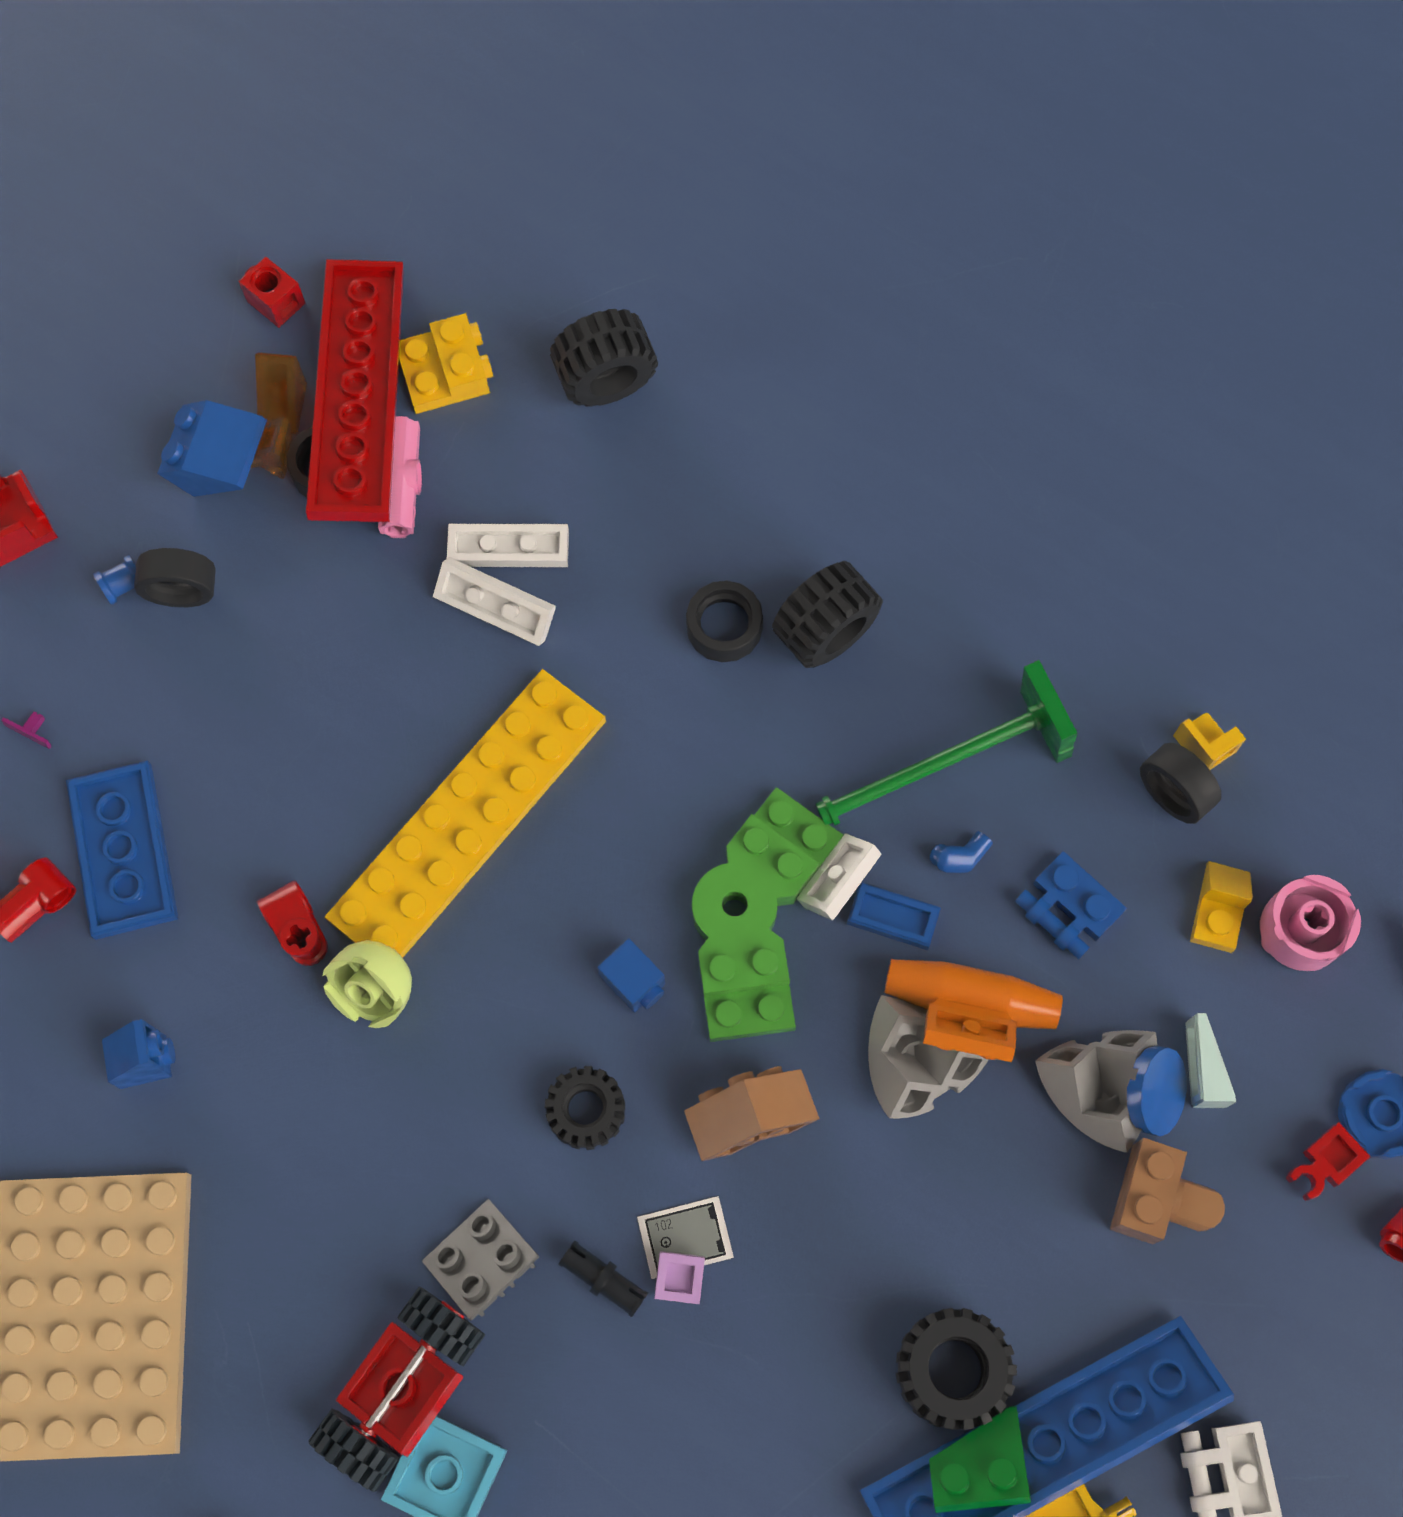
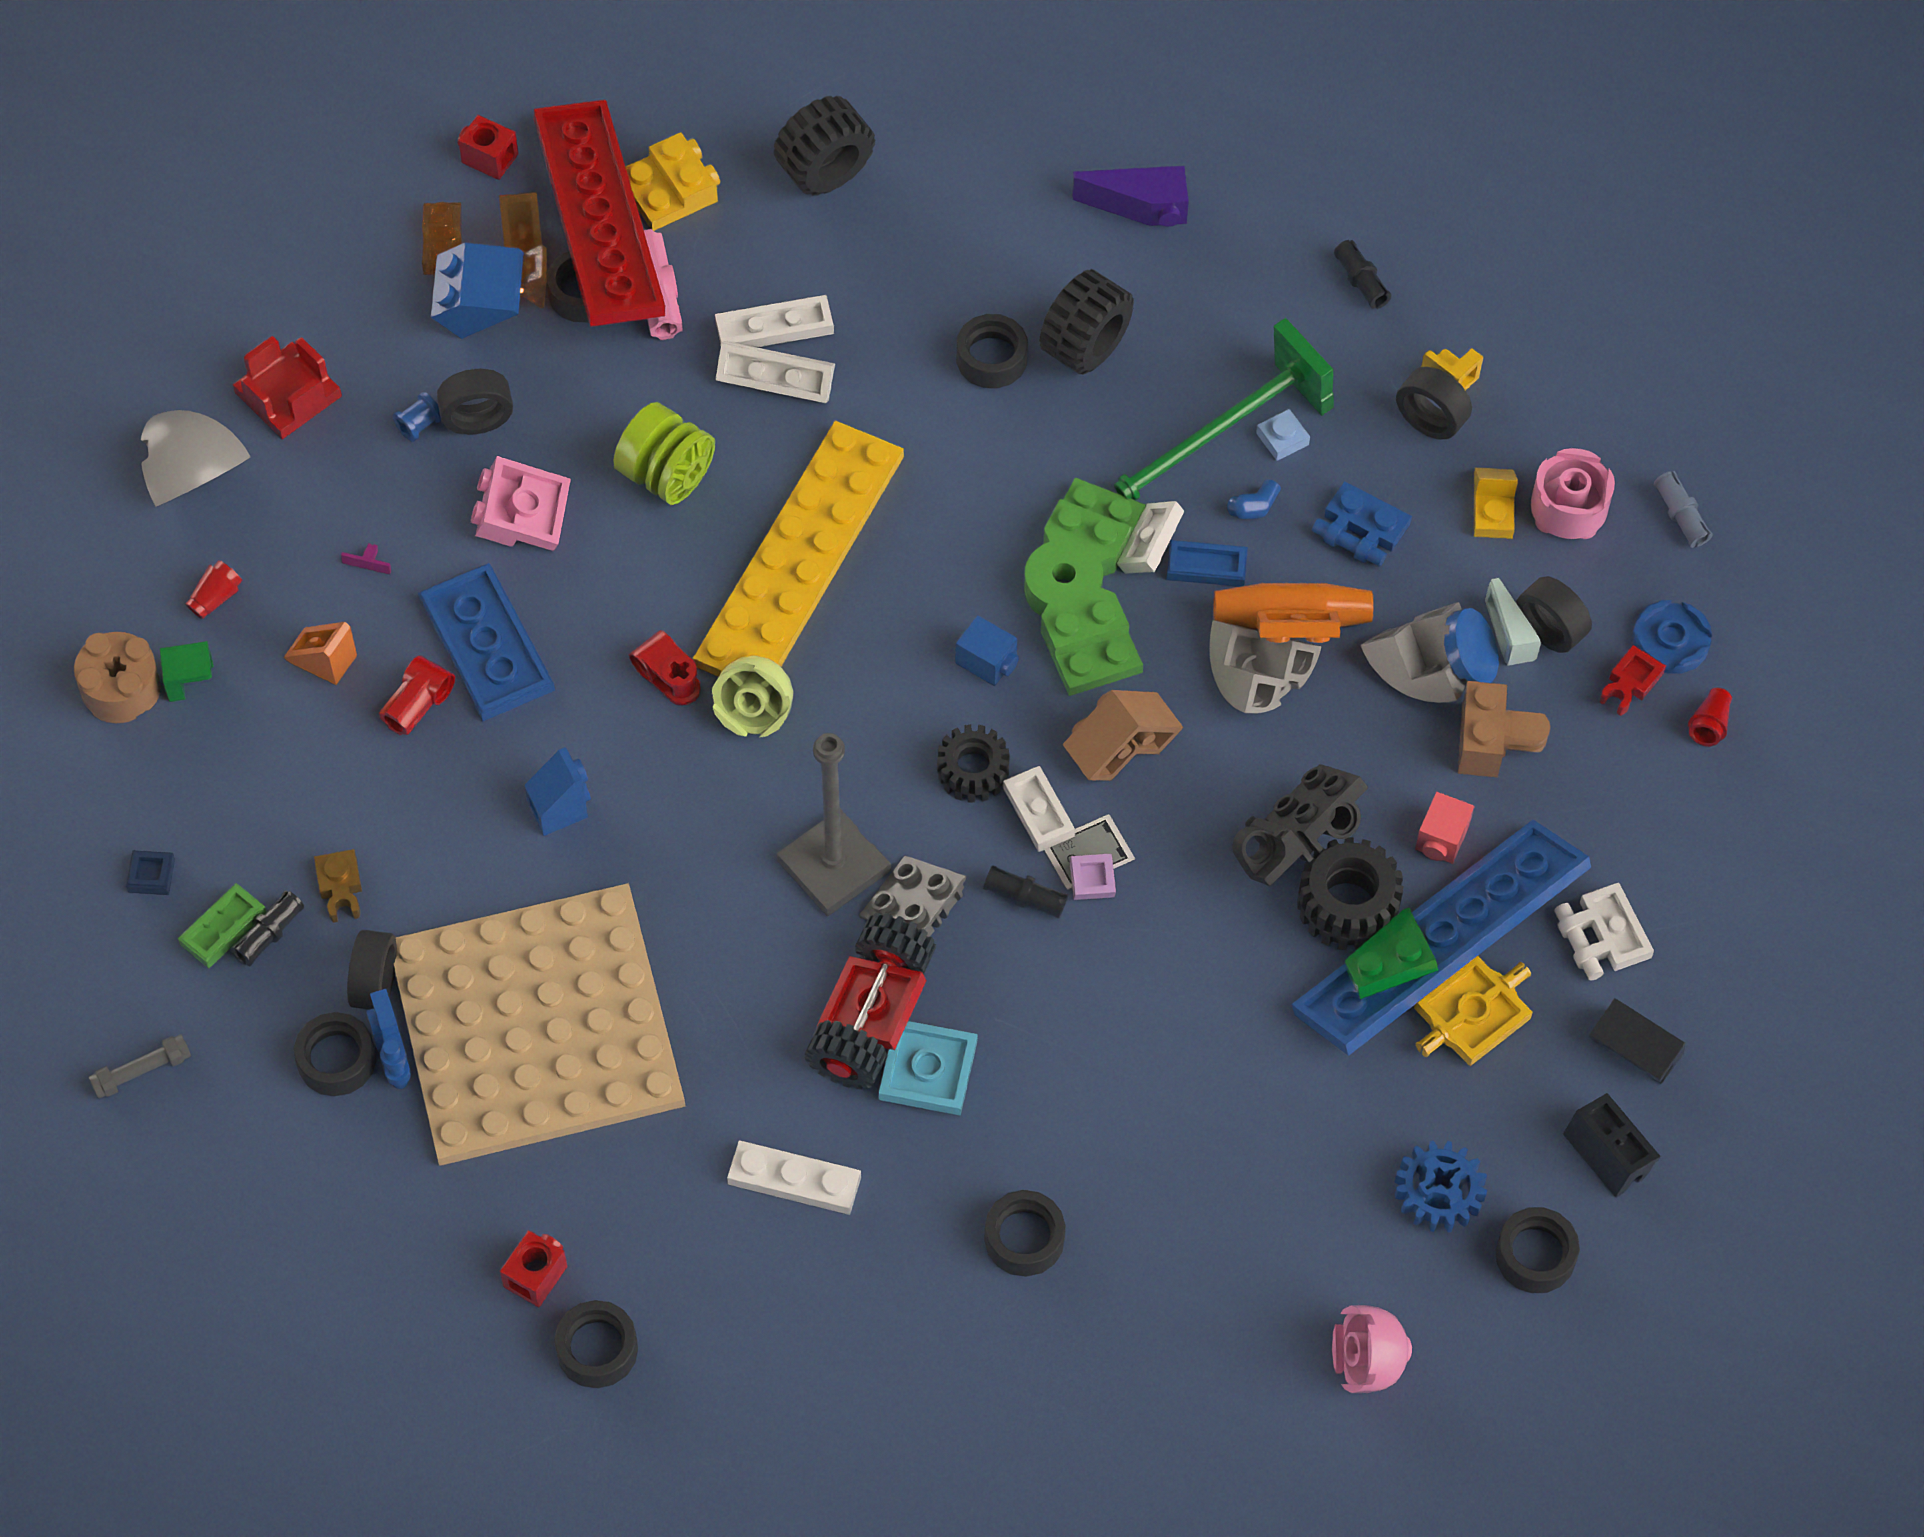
camera: 15 degrees left, 10 degrees down
(194, 702) = (520, 504): none -> bright pink plate
(203, 374) = (440, 231): none -> clear orange slope
(349, 677) = (664, 453): none -> lime wheel
(406, 1189) = (833, 857): none -> dark grey tile
(642, 1179) = (1039, 808): none -> white plate
(923, 1269) = (1315, 807): none -> black plate
(925, 472) = (1140, 194): none -> dark purple slope
(1009, 779) = (1283, 434): none -> light blue plate
(1078, 1306) = (1444, 828): none -> coral brick
(1137, 609) = (1362, 274): none -> black pin
(1258, 1070) = (1555, 614): none -> black tyre

